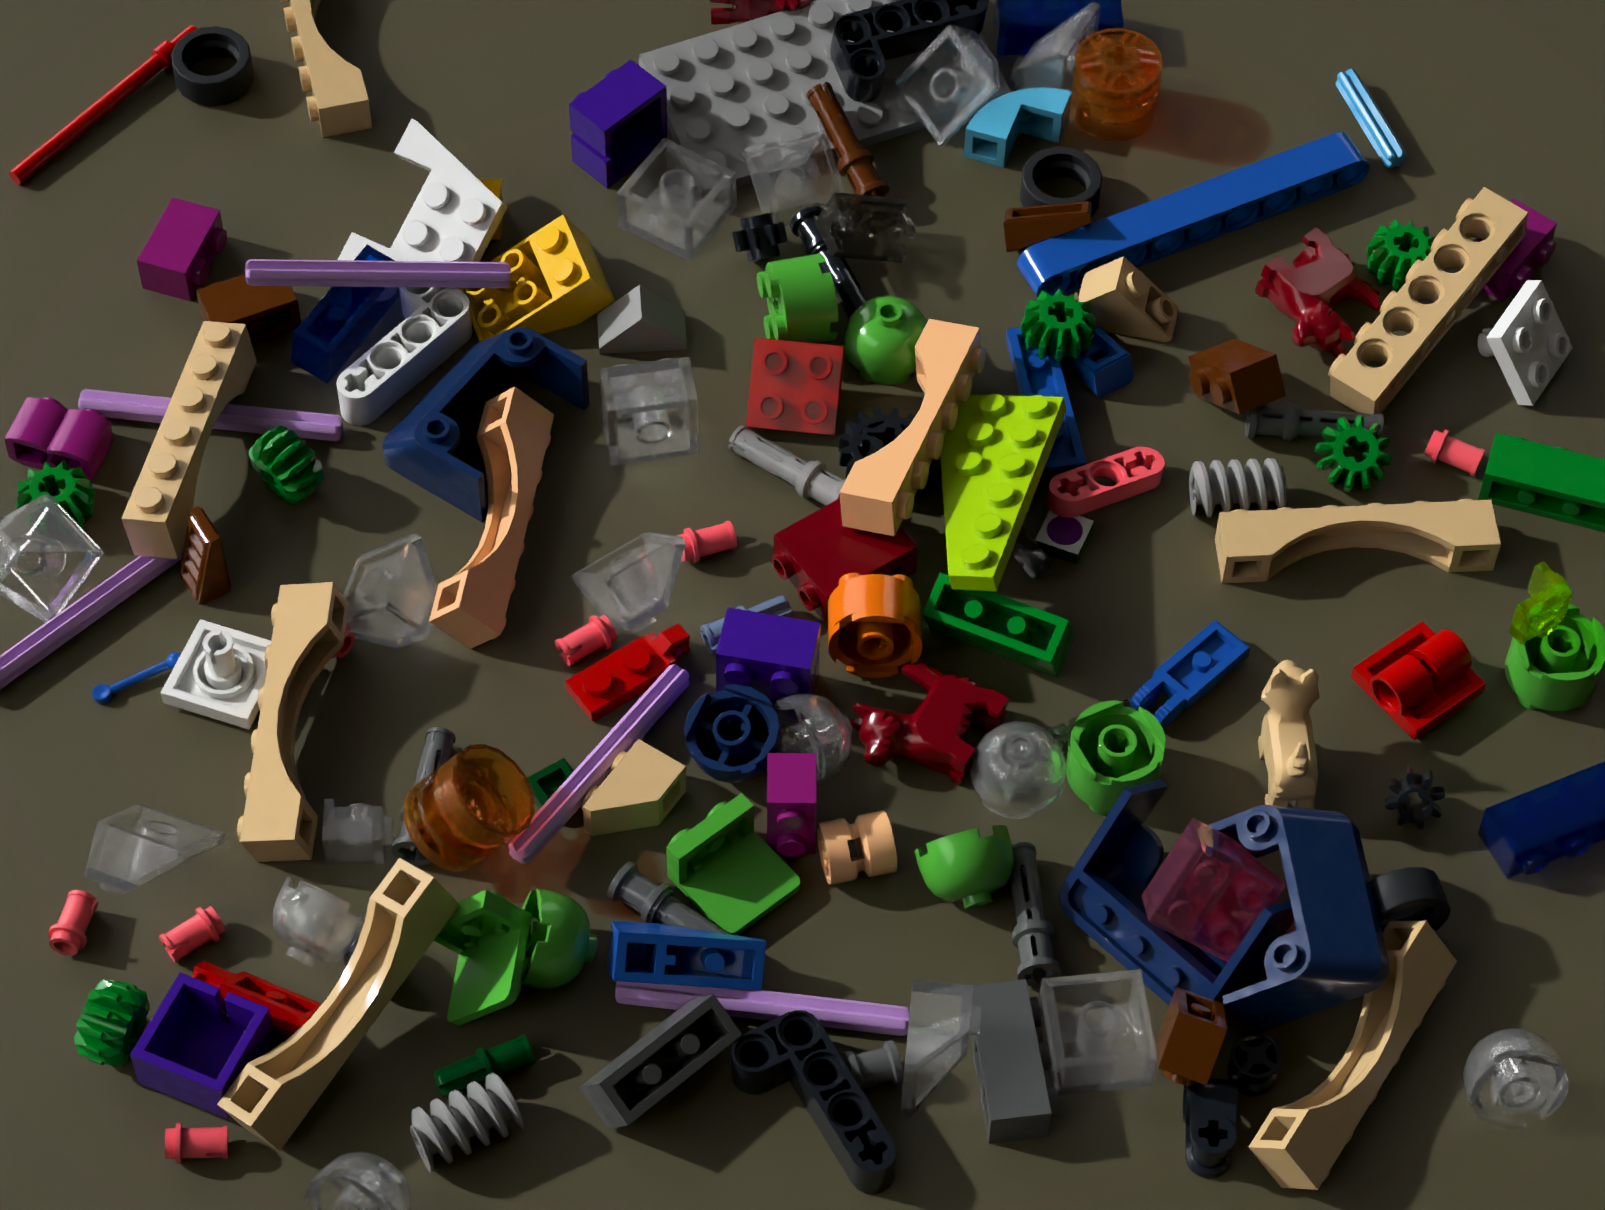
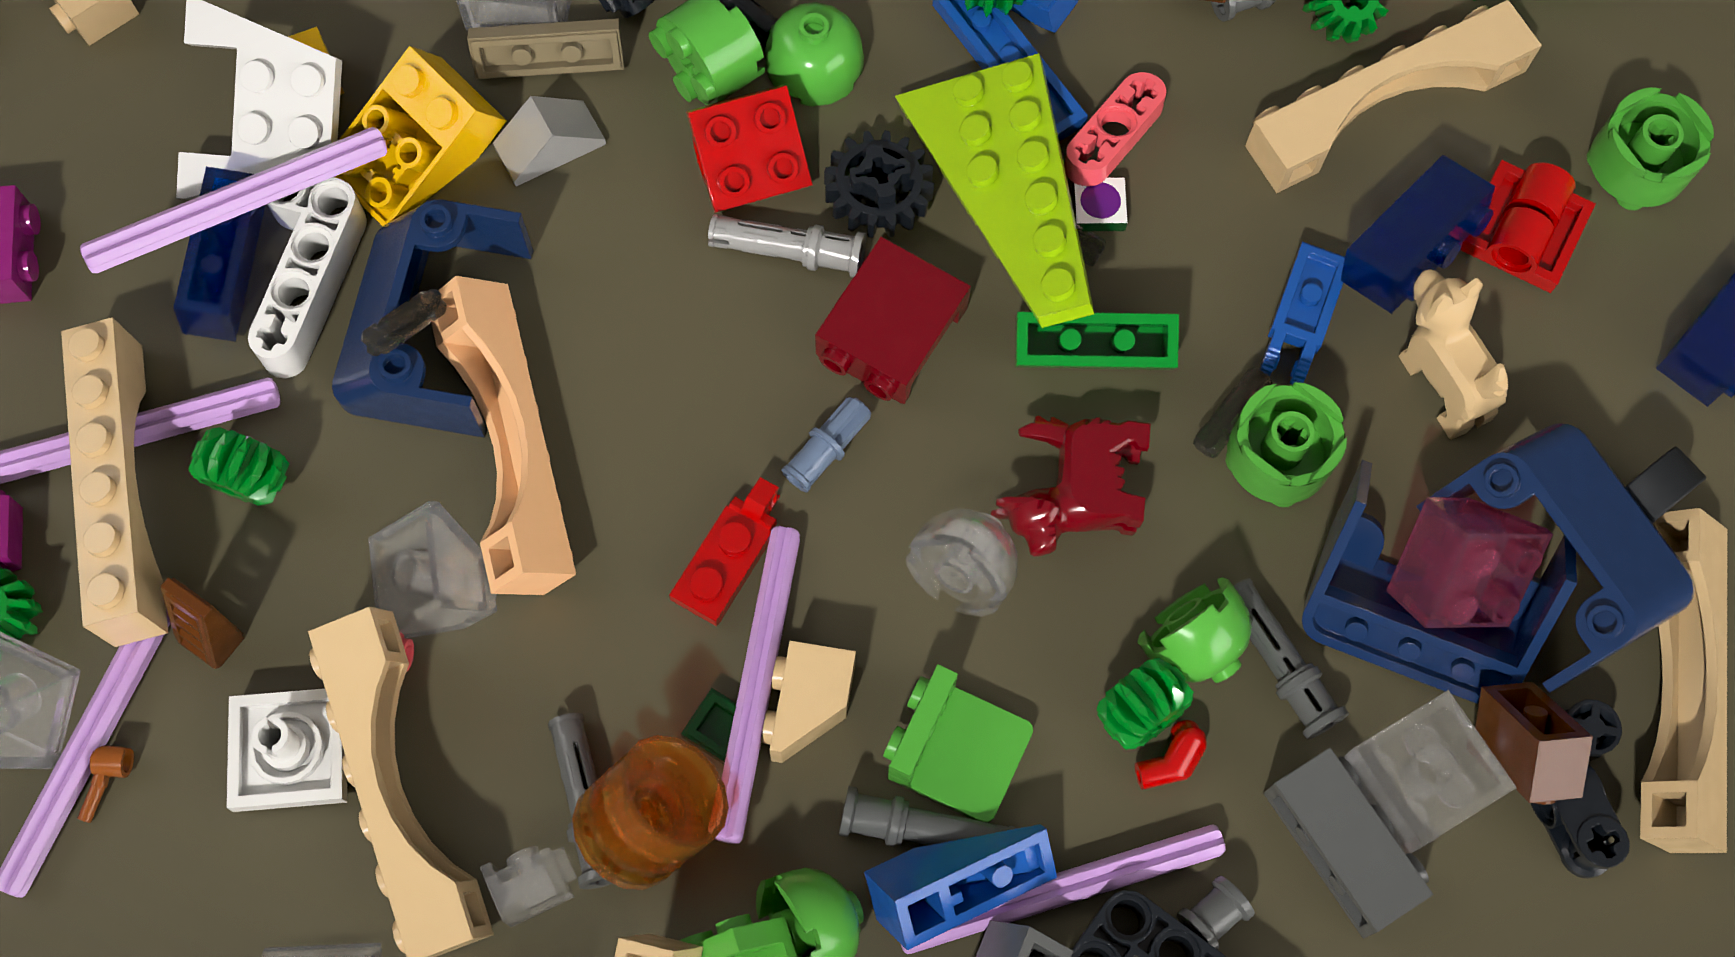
camera: 25 degrees left, 15 degrees up
(89, 632) = (105, 763): none -> dark orange hand
(103, 693) = (159, 828): blue hinge -> none
(263, 309) = (121, 292): reddish brown brick -> none
(458, 402) = (403, 322): none -> clear smoke axle
(586, 640) = (668, 535): coral pin -> none
(633, 580) = (686, 442): clear slope -> none
(649, 410) = (611, 239): clear brick -> none
(673, 260) = (546, 48): none -> dark tan tile
(708, 541) = (739, 365): coral pin -> none
(732, 733) = (889, 591): dark blue cylinder -> none
(768, 653) = (883, 490): dark purple piece -> none
(791, 803) = (990, 647): magenta brick -> none
(873, 845) = (1080, 659): light nougat wheel -> none
(874, 624) = (970, 394): orange brick -> none
(884, 484) = (909, 230): light nougat arch -> none
(895, 893) = (1144, 703): none -> green gear
(904, 954) = (1180, 760): none -> red arm
(936, 1037) = (1277, 866): clear slope -> none
(1018, 770) = (1189, 495): clear cylinder -> none
(1236, 485) = (1249, 82): light grey piece -> none
(1316, 636) = (1418, 233): none -> clear blue brick
(1423, 786) = (1593, 361): black gear -> none
(1545, 608) = (1644, 91): clear neon green bracket -> none

